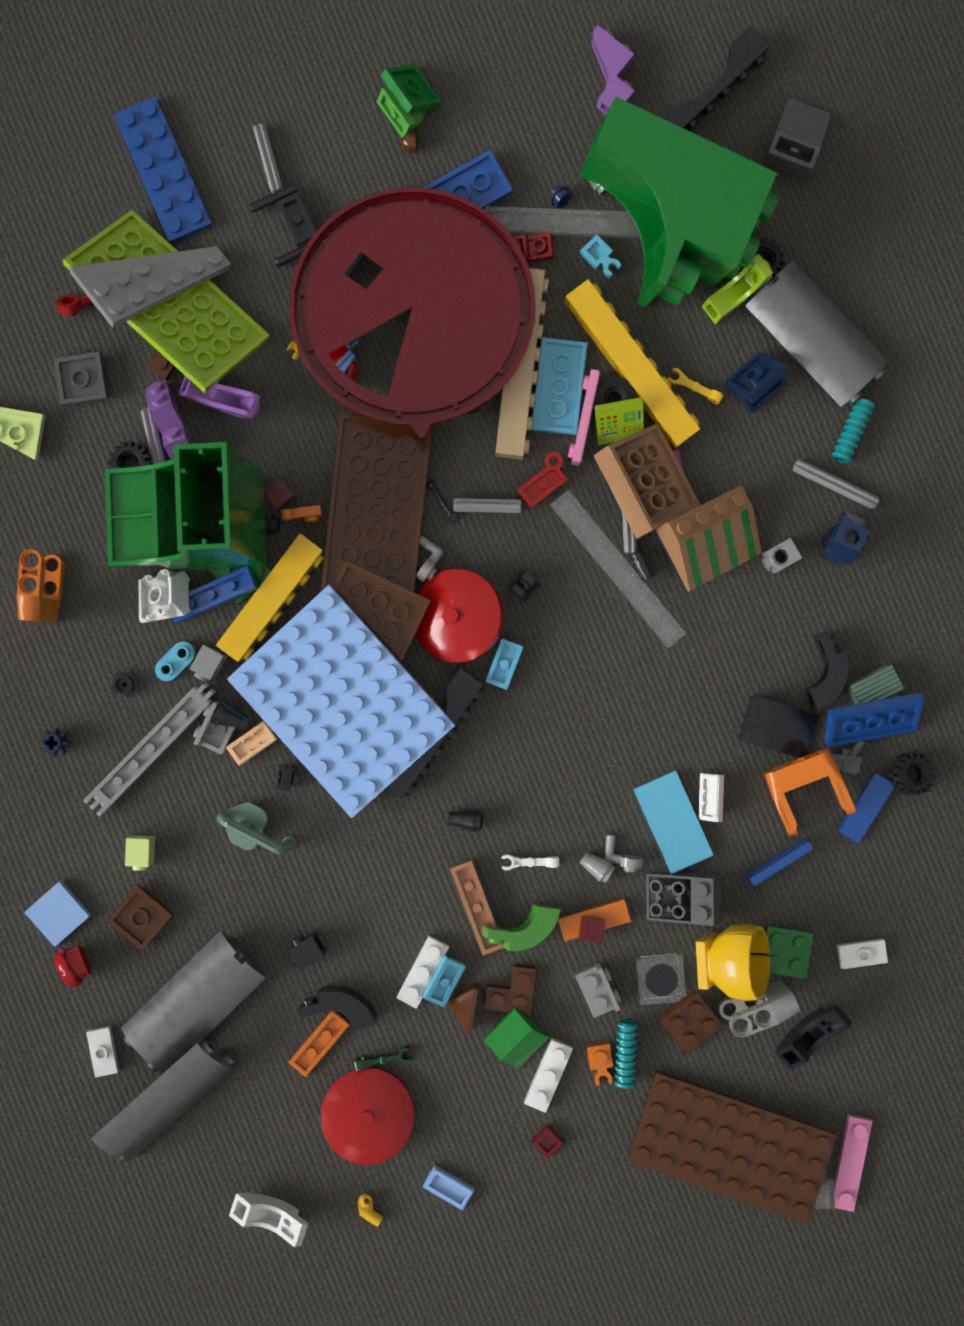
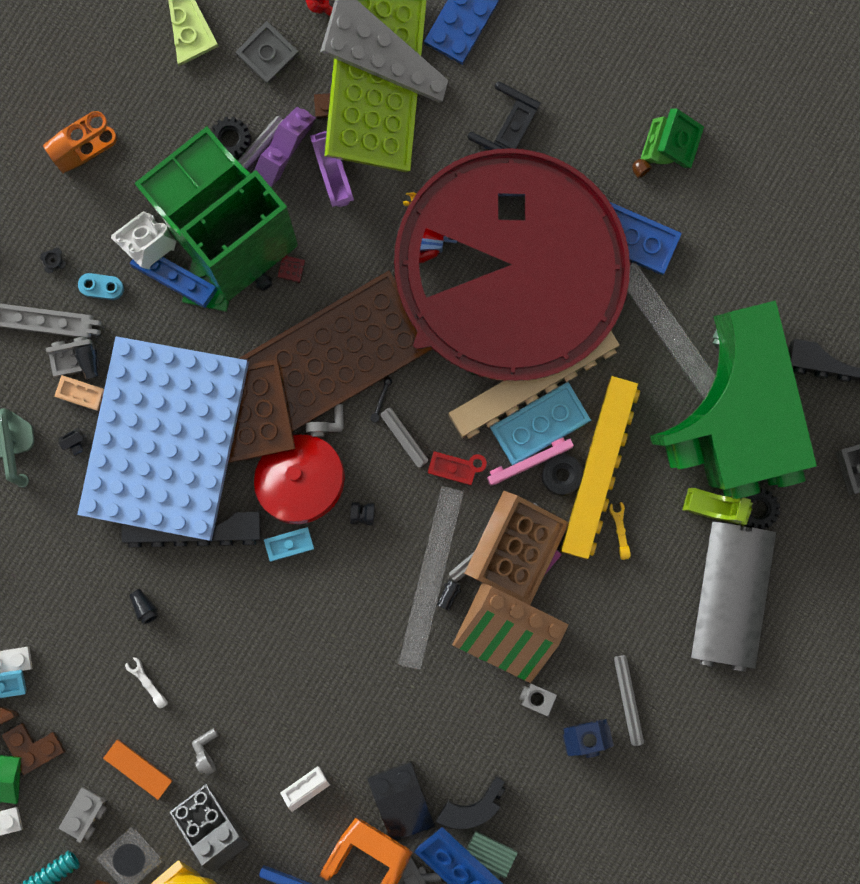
camera: 45 degrees right, 5 degrees down
(208, 663) = (117, 312): light grey brick -> none
(267, 157) = (545, 68): light grey axle -> none
(271, 598) = (205, 324): yellow brick -> none
(309, 513) = (293, 304): orange plate -> none
(475, 903) = (79, 667): nougat plate -> none
(529, 934) = (87, 724): bright green arch -> none
(536, 247) = (633, 323): red slope -> none
(560, 196) = (687, 314): dark blue plate -> none
(591, 929) = (128, 772): dark red tile -> none
(597, 253) = (666, 377): medium azure plate -> none
(598, 867) = (182, 740): light grey cone -> none
(600, 1059) = (29, 859): orange plate -> none
(614, 62) = (822, 279): medium lavender arch -> none
(618, 420) = (546, 490): lime tile -> none
(673, 821) = (263, 773): medium azure tile -> none
(757, 381) = (661, 576): dark blue bracket -> none
(853, 430) = (680, 682): teal piece -> none

